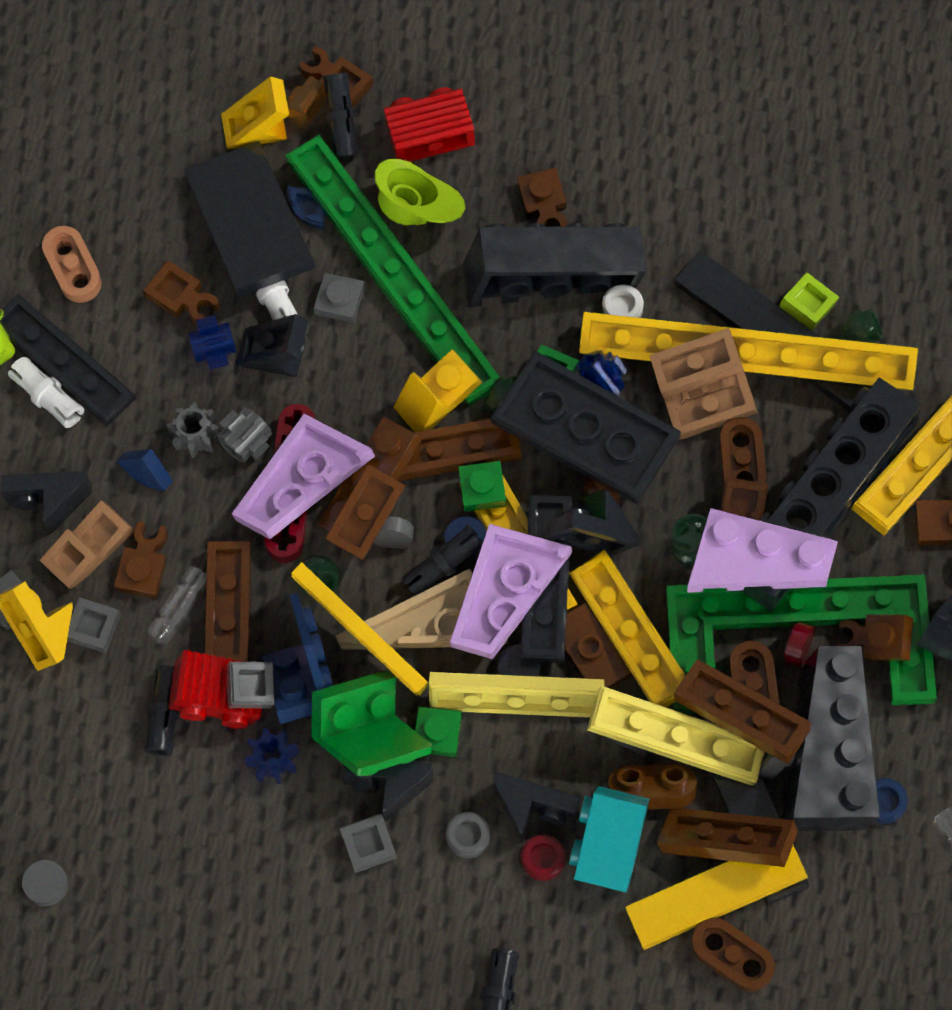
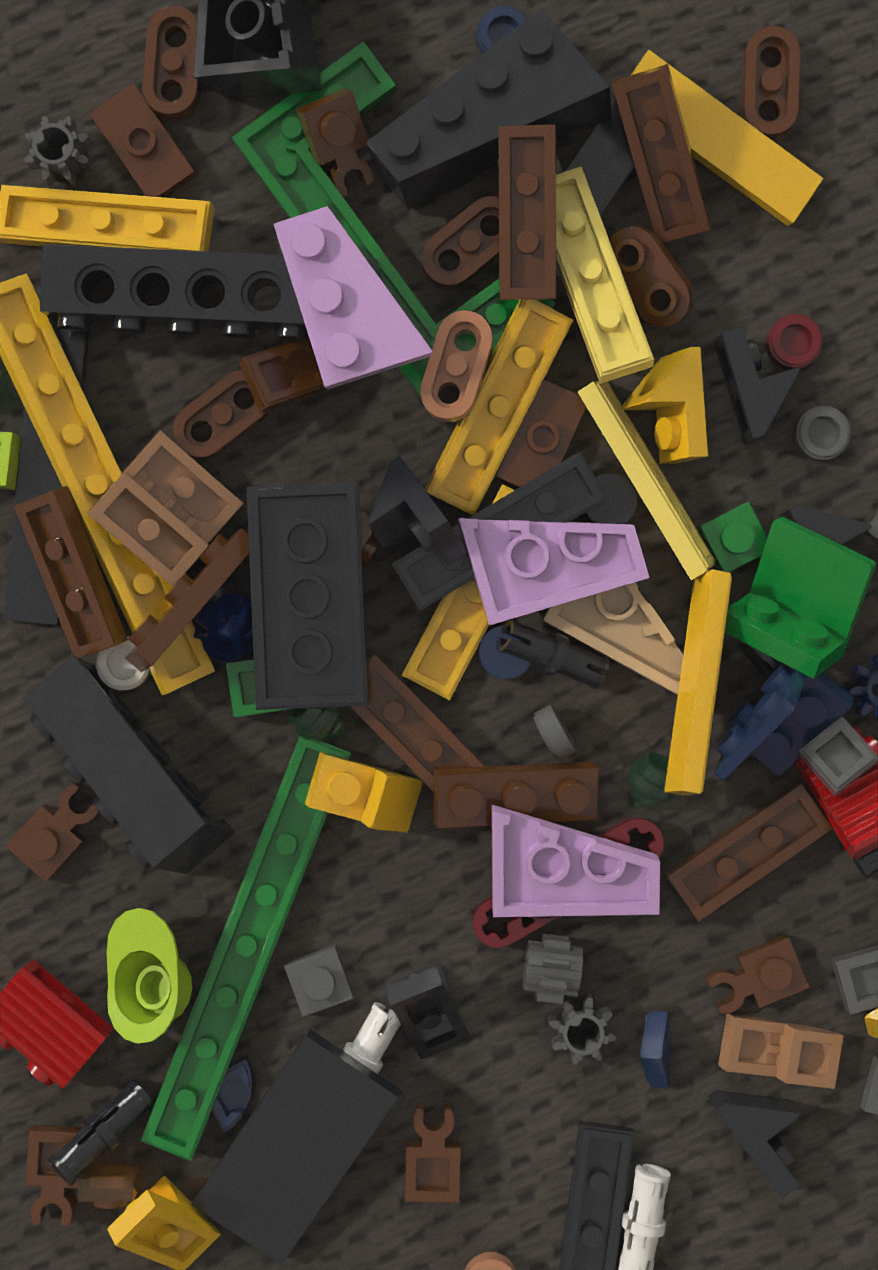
camera: 130 degrees left, 20 degrees up
(178, 605) = (782, 905): clear axle -> none
(212, 342) = (469, 1081): clear blue gear -> none
(365, 512) = (565, 768): reddish brown plate -> none
(482, 486) = (441, 669): green plate -> none
(563, 748) = (677, 395): none -> yellow slope
(610, 838) = (741, 274): teal brick -> none
(634, 356) = (187, 599): none -> reddish brown plate
(675, 613) = (456, 367): none -> nougat plate
(687, 531) = (350, 401): clear green wheel -> none
(700, 302) = (70, 572): none -> reddish brown plate
(798, 644) = (395, 222): dark red tile -> none

